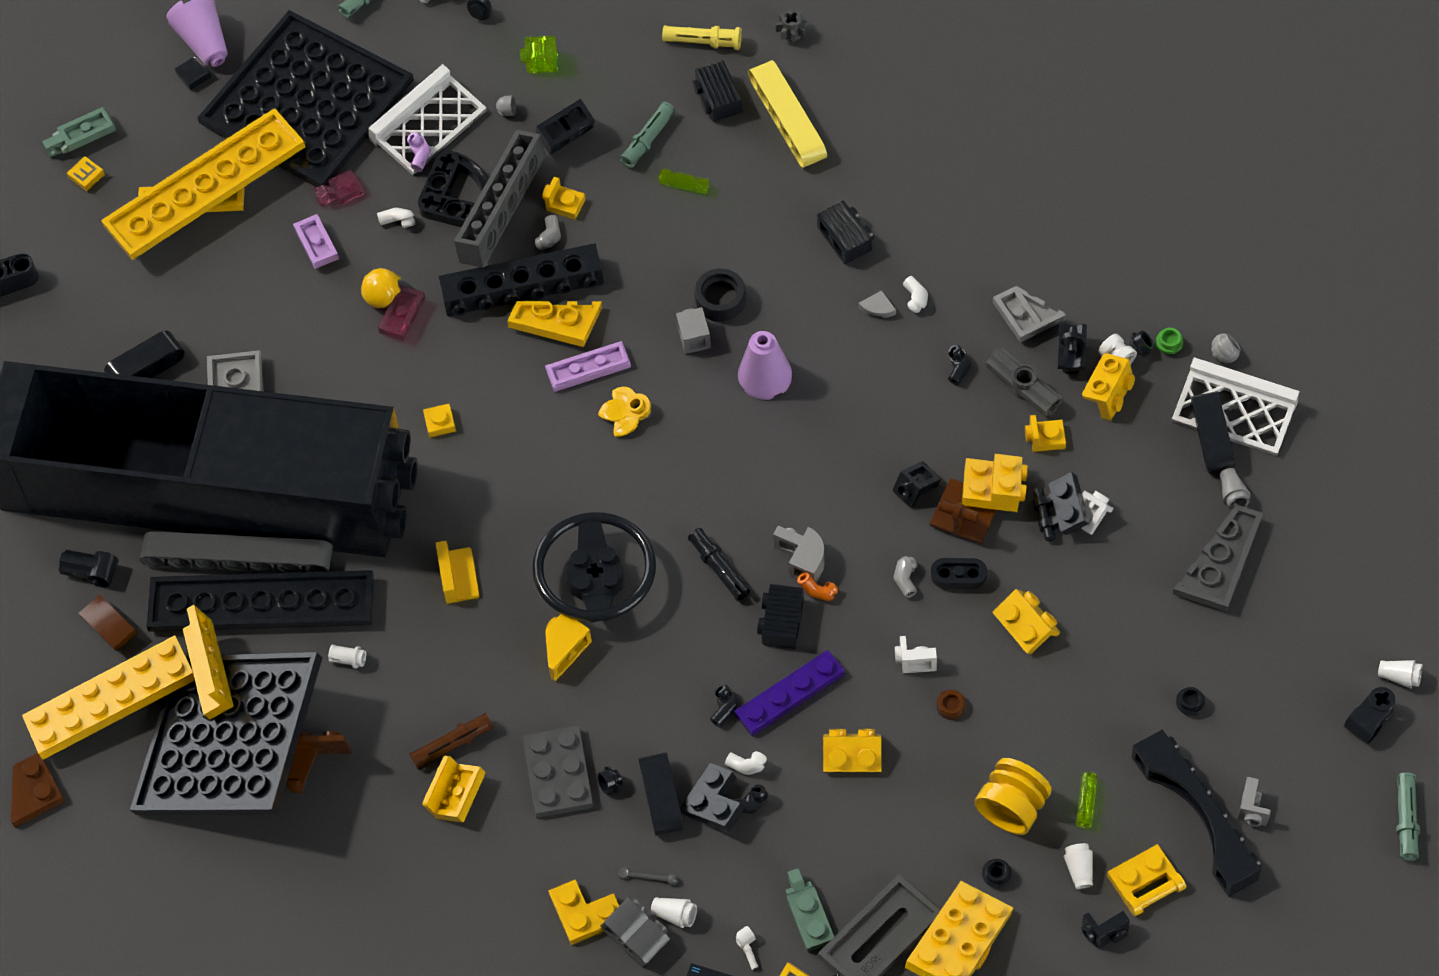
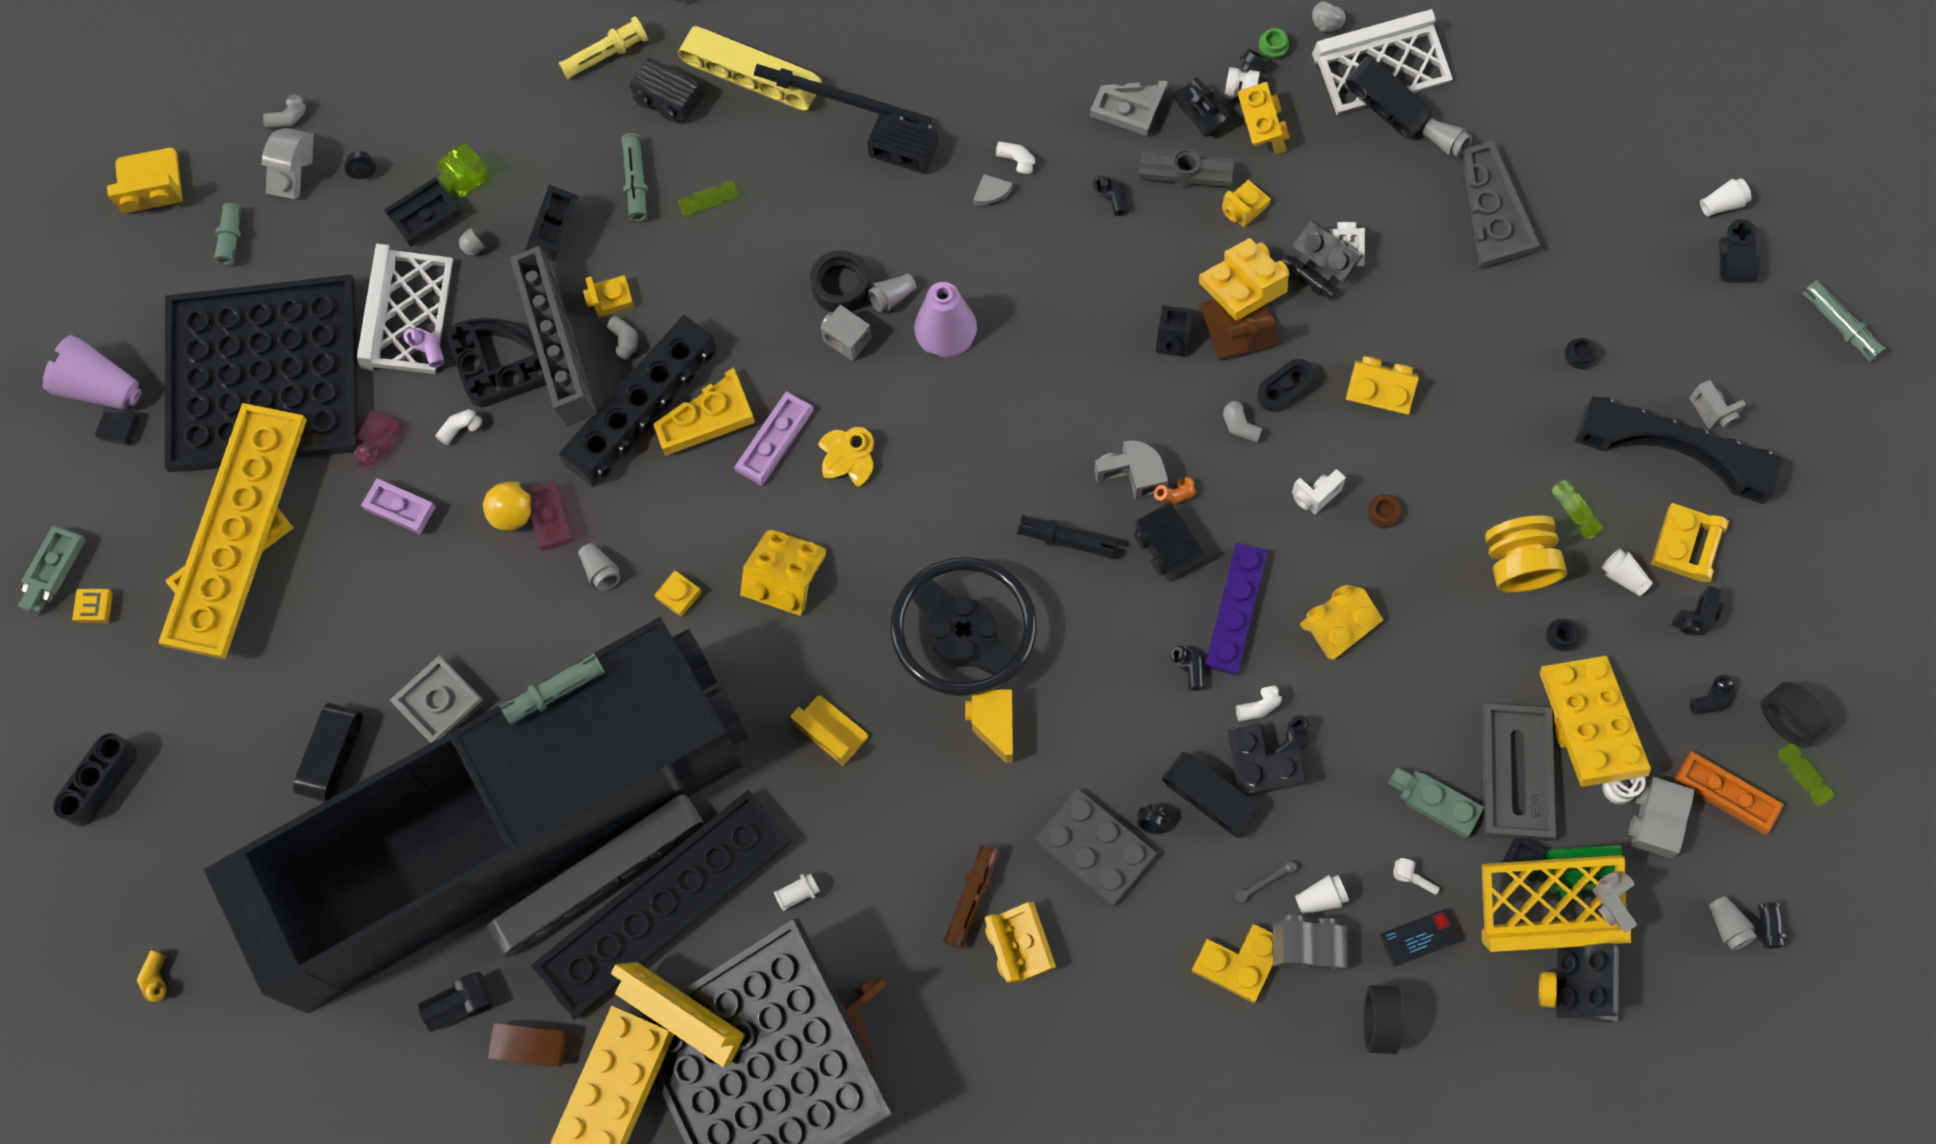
camera: 40 degrees left, 10 degrees up
(278, 400) = (546, 692): none -> sand green pin
(403, 368) = (599, 568): none -> light grey cone
(493, 65) = (422, 211): none -> black plate
(513, 449) = (781, 571): none -> yellow bracket
(746, 324) = (890, 292): none -> light grey cone
(799, 136) = (785, 79): none -> black bar

